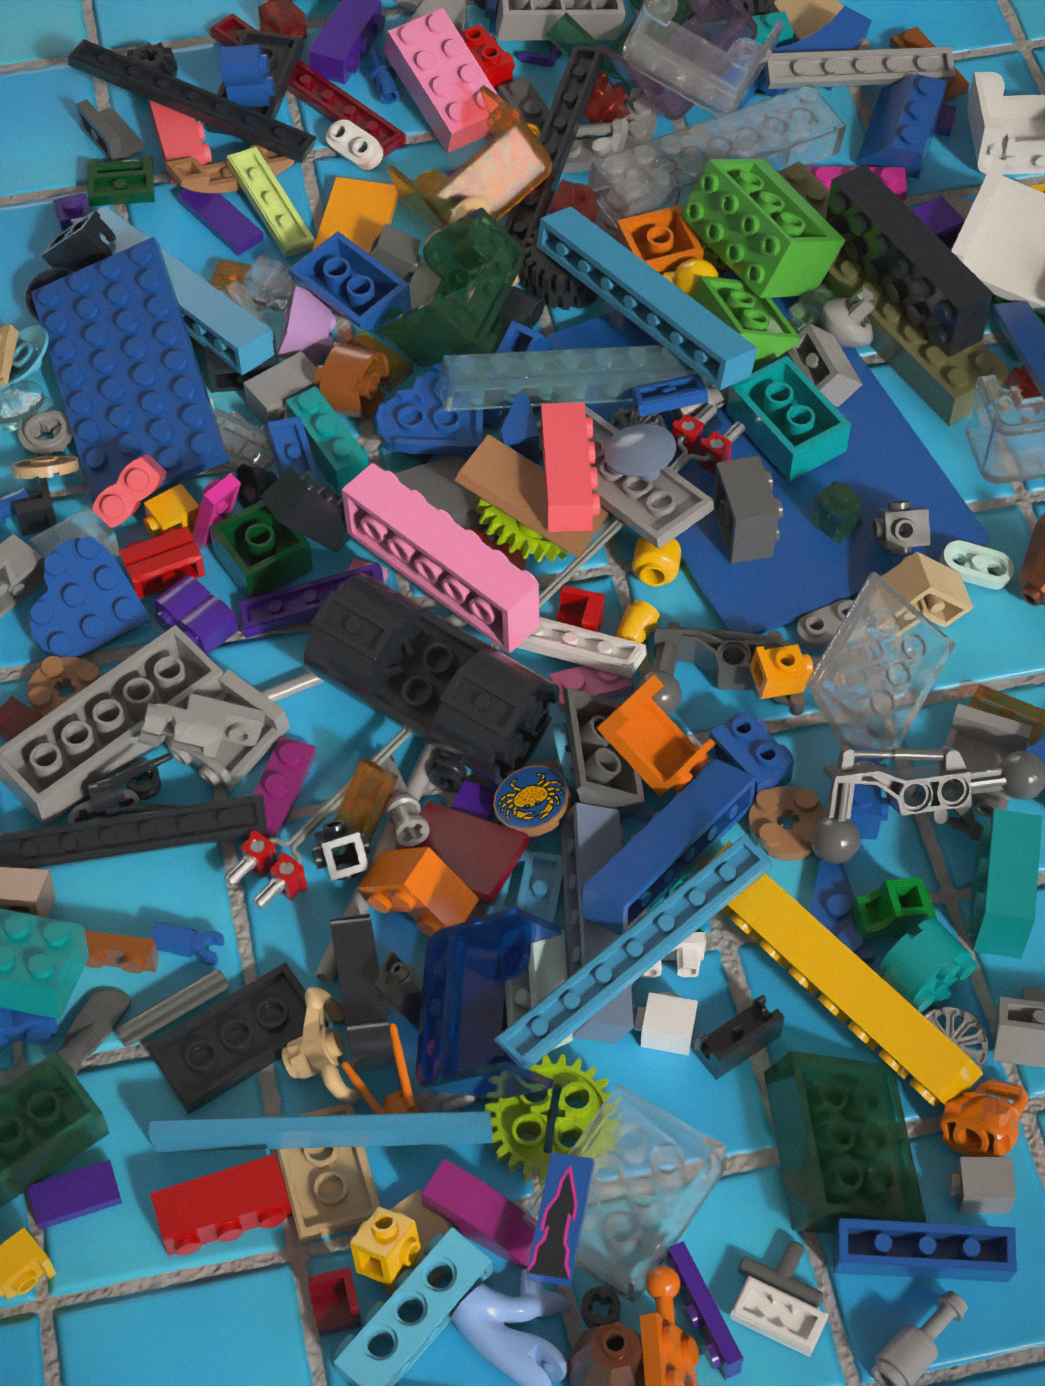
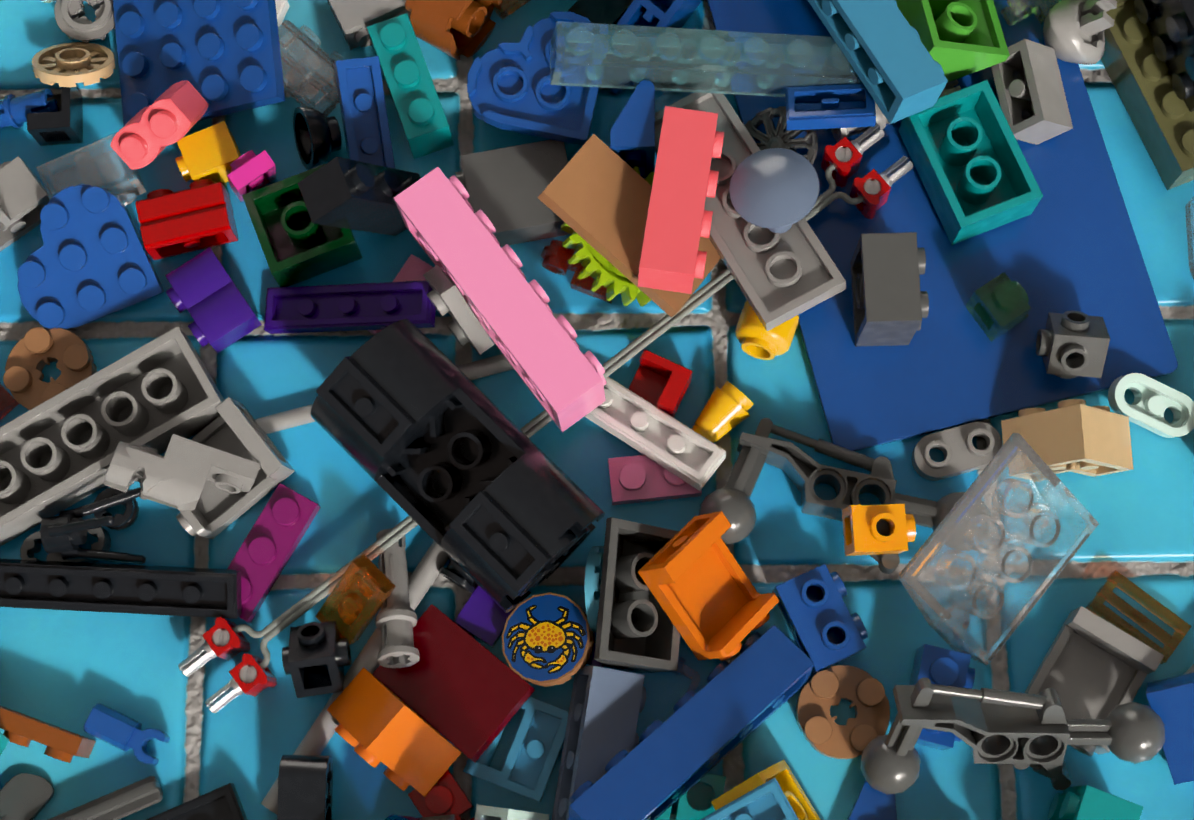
camera: 15 degrees right, 20 degrees up
(402, 577) = (448, 299): none -> light grey plate

